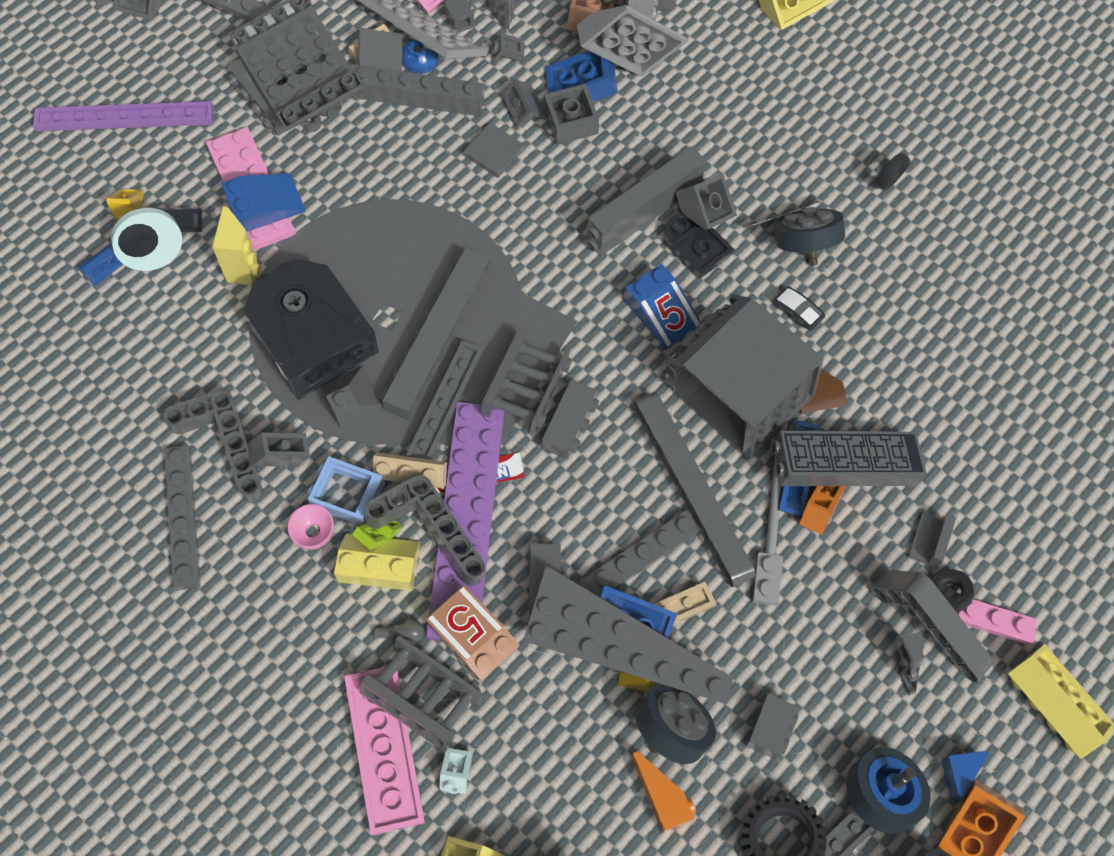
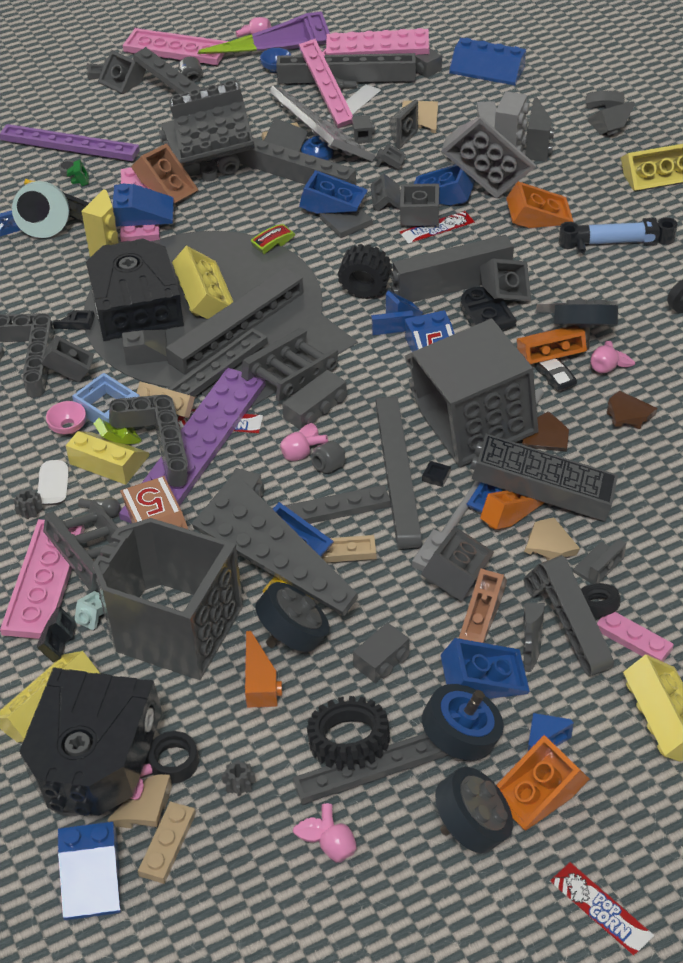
camera: 25 degrees right, 20 degrees down
(141, 154) = (66, 164): none -> tile
(159, 163) = (80, 173): none -> green tile
(255, 380) = (76, 320): none -> black tile
(266, 144) = (164, 173): none -> nougat slope
(328, 659) = (28, 503): none -> dark grey gear
(332, 616) = (53, 481): none -> white sticker
(379, 292) = (201, 283): none -> light yellow slope
(425, 200) = (270, 237): none -> slope
(431, 813) = (55, 634): none -> black slope
(470, 125) = (330, 195): none -> blue slope
(543, 699) = (171, 556): none -> dark grey container
(555, 231) = (366, 259): none -> black tyre
(576, 486) = (297, 444): none -> bright pink piece
(606, 288) = (389, 322): none -> blue tile
(608, 124) = (445, 224): none -> sticker
(608, 266) = (396, 303): none -> blue slope
(616, 493) = (328, 457): none -> dark grey head
(695, 83) = (537, 207): none -> orange slope
(730, 476) = (436, 473): none -> black tile
(783, 276) = (552, 344): none -> orange brick
(804, 592) = (457, 563): none -> dark grey slope
(818, 90) = (647, 231): none -> piece
(845, 275) = (606, 358): none -> bright pink piece
(846, 636) = (483, 606): none -> nougat slope
(876, 529) = (550, 540): none -> tan slope
(877, 715) = (485, 667): none -> blue slope
(888, 336) = (629, 410): none -> reddish brown slope

